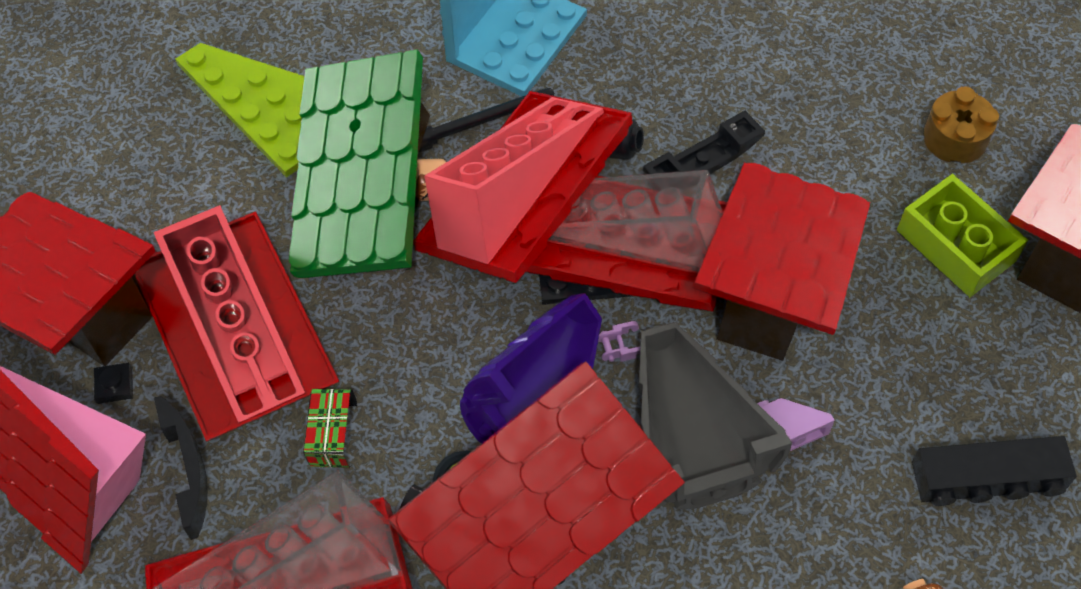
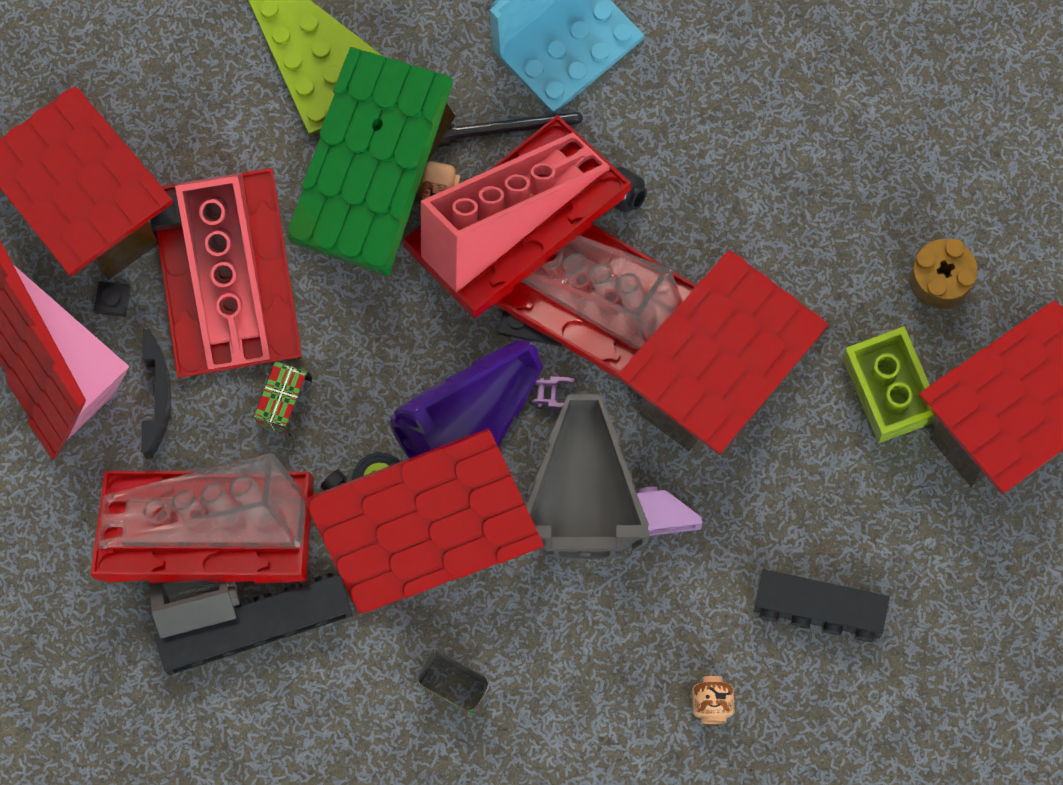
camera: 20 degrees right, 15 degrees up
(153, 278) = (168, 218): none -> black plate
(714, 152) = (695, 231): black slope -> none

